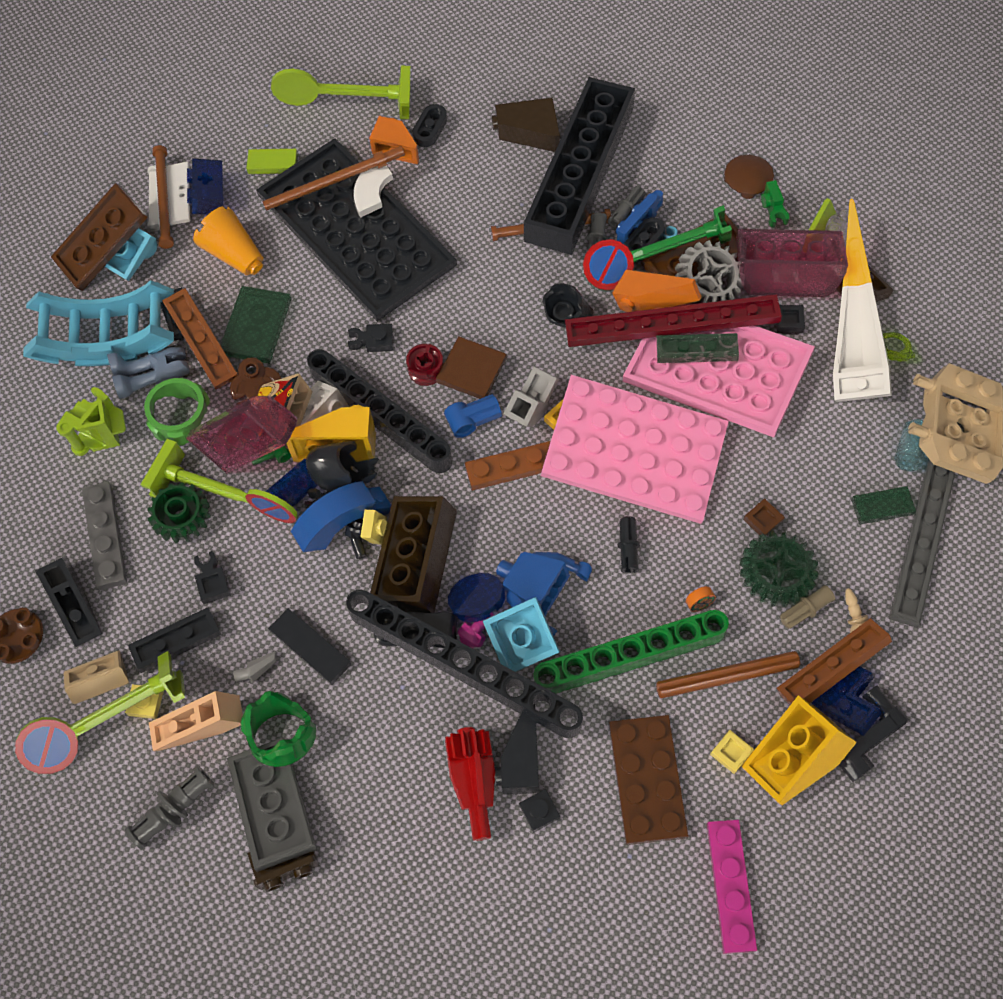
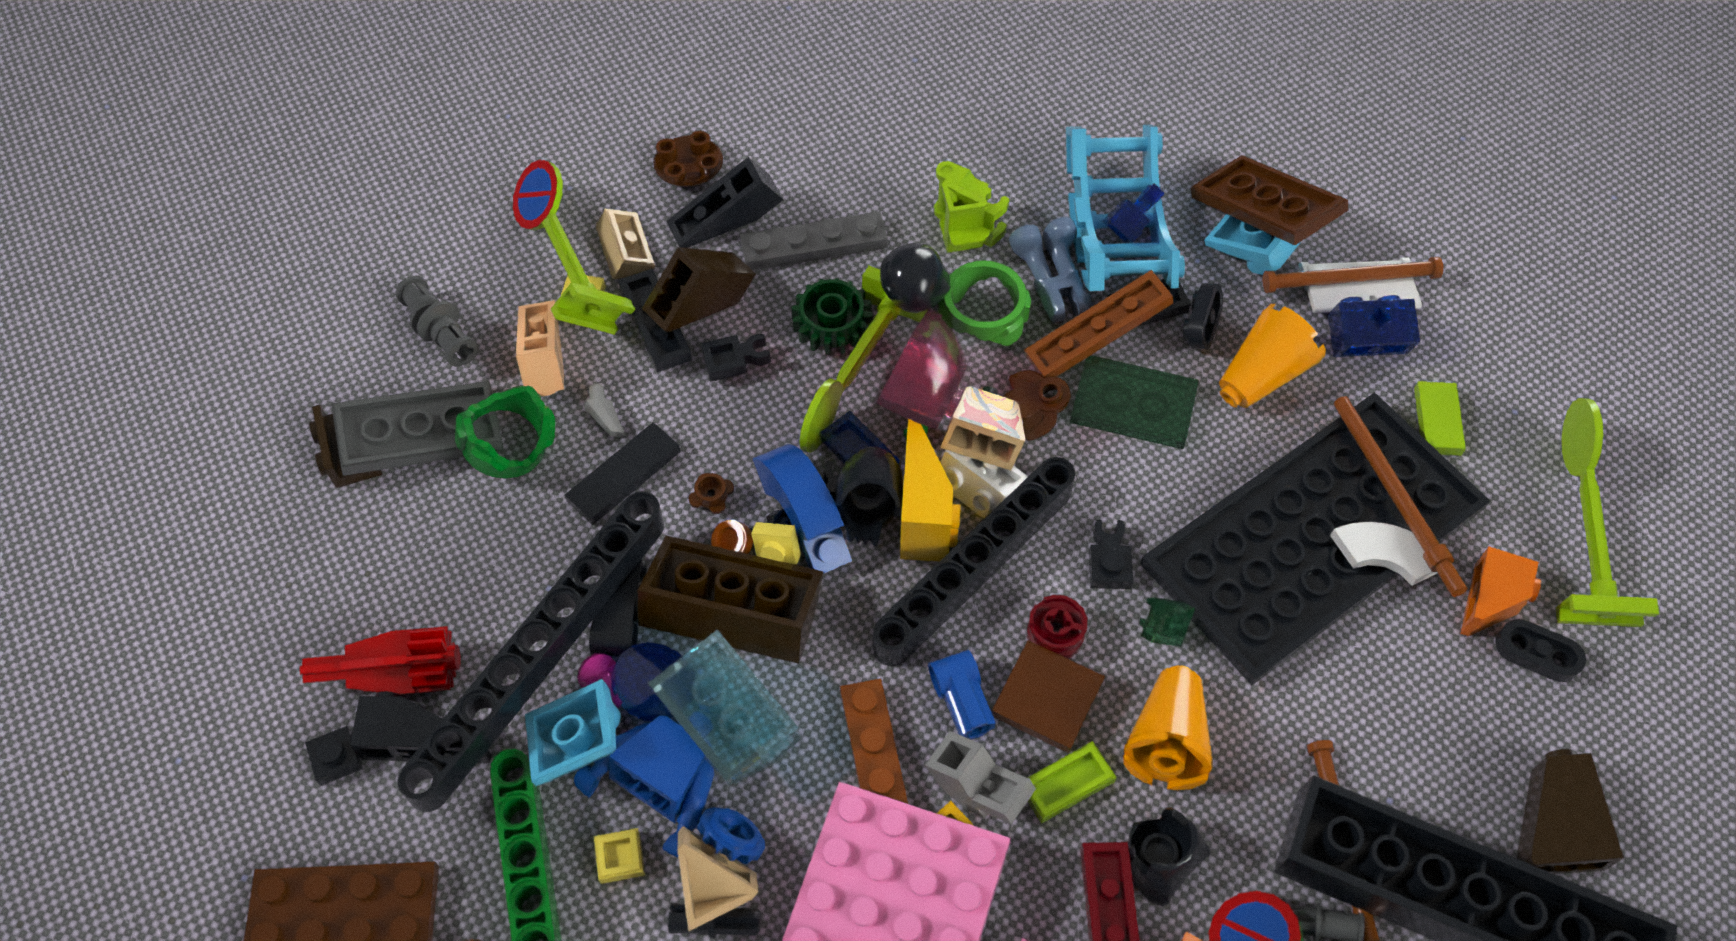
camera: 90 degrees right, 5 degrees down
(110, 319) = (1129, 218): none -> clear blue piece
(156, 603) = (697, 286): none -> dark brown slope
(164, 442) = (914, 277): none -> black helmet
(182, 278) = (1205, 316): none -> black plate
(323, 575) = (707, 483): none -> reddish brown plate
(365, 562) = (732, 536): none -> orange tile
(421, 302) = (1166, 621): none -> clear green tile
(491, 299) = (1172, 733): none -> light orange cone
(495, 543) = (725, 709): none -> clear light blue slope
(521, 356) = (1069, 781): none -> lime tile
(577, 536) = (731, 834): none -> blue gear
(592, 608) = (619, 856): none -> light yellow tile
(609, 544) = (710, 880): none -> tan slope

